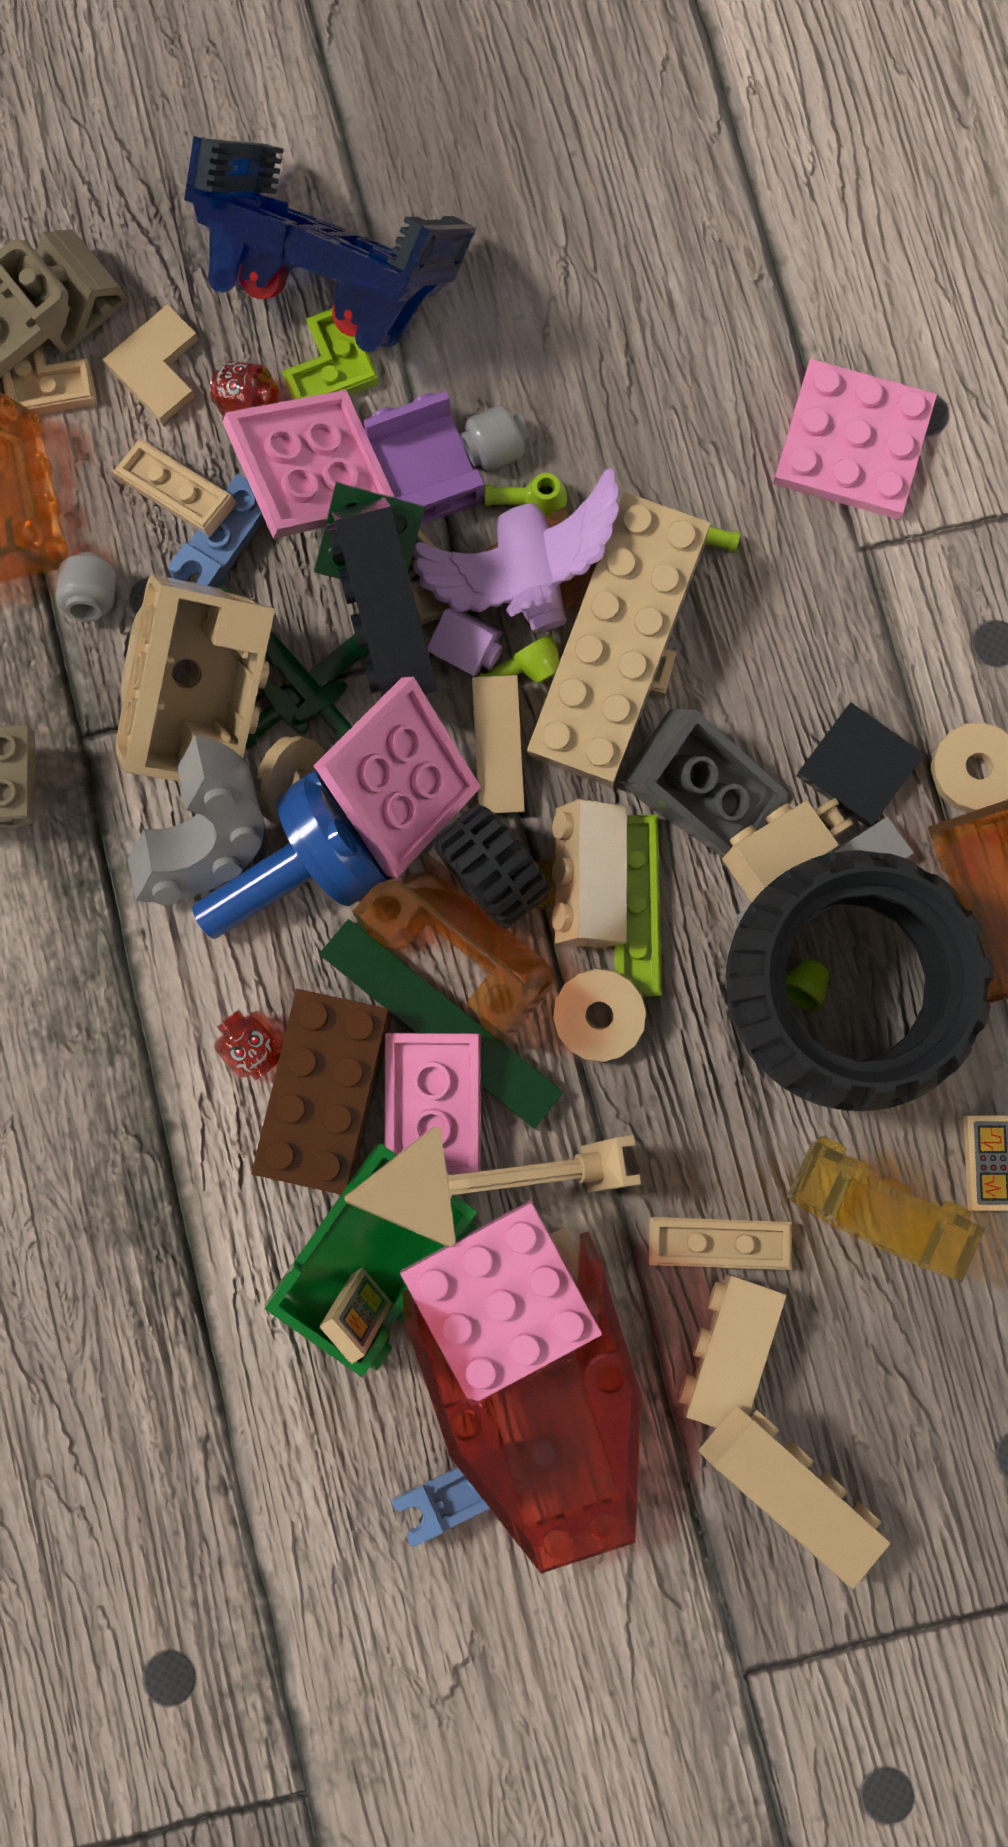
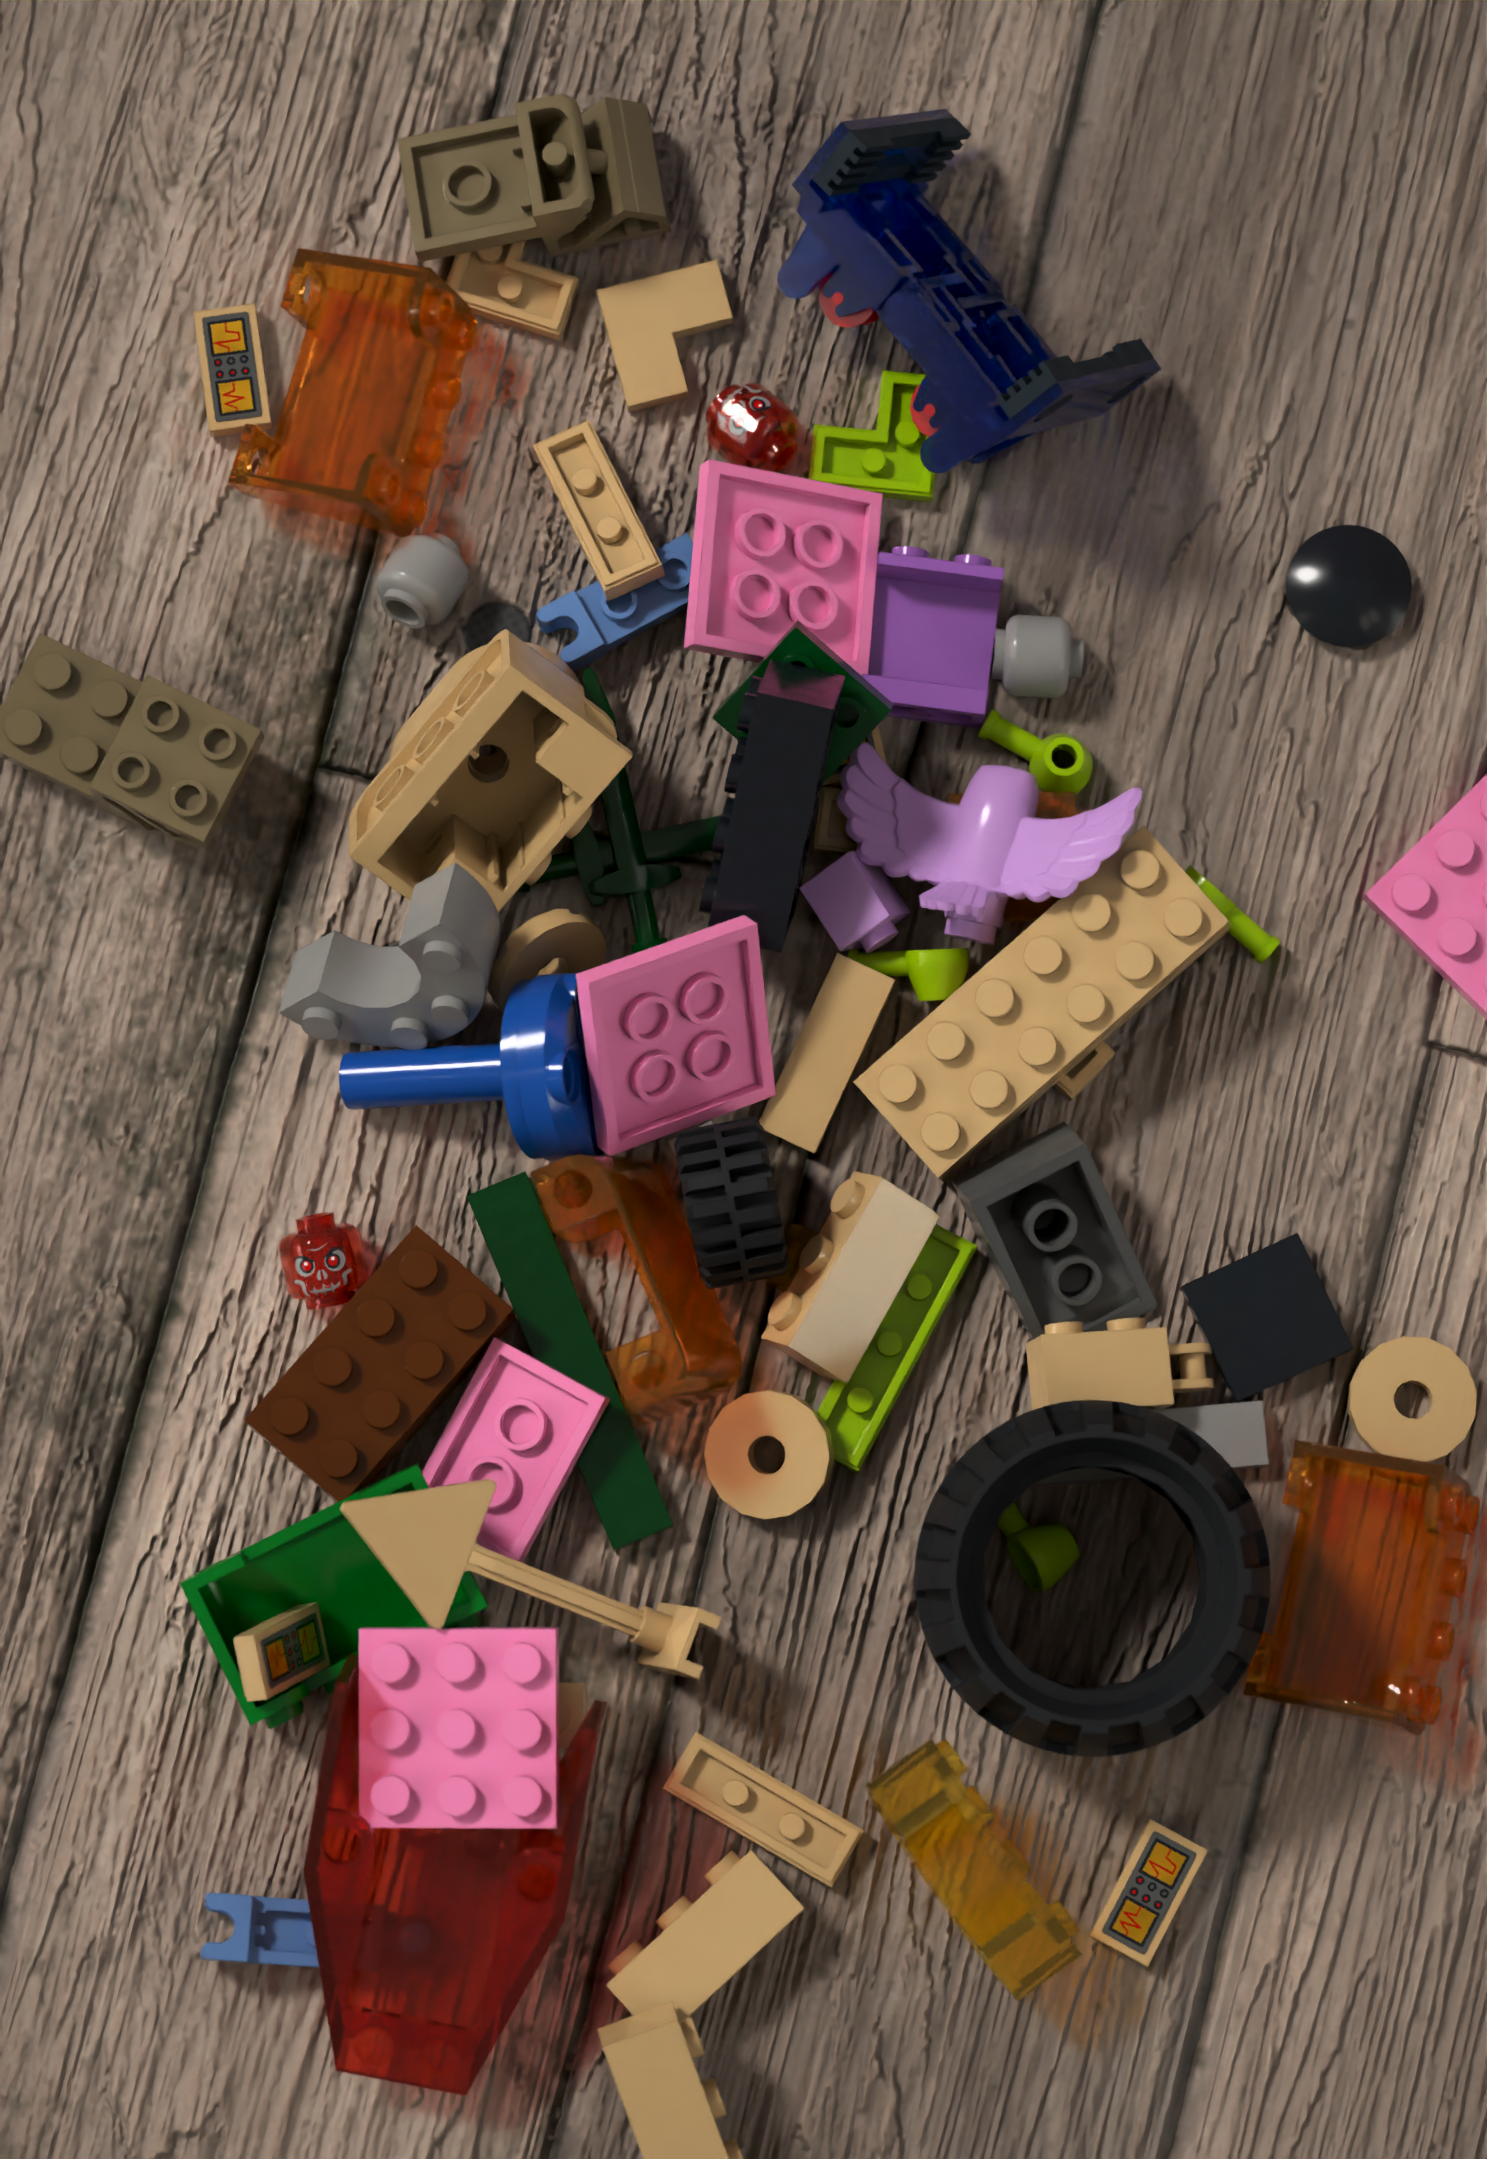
camera: 25 degrees right, 0 degrees up
(660, 302) = (1348, 586): none -> black dish

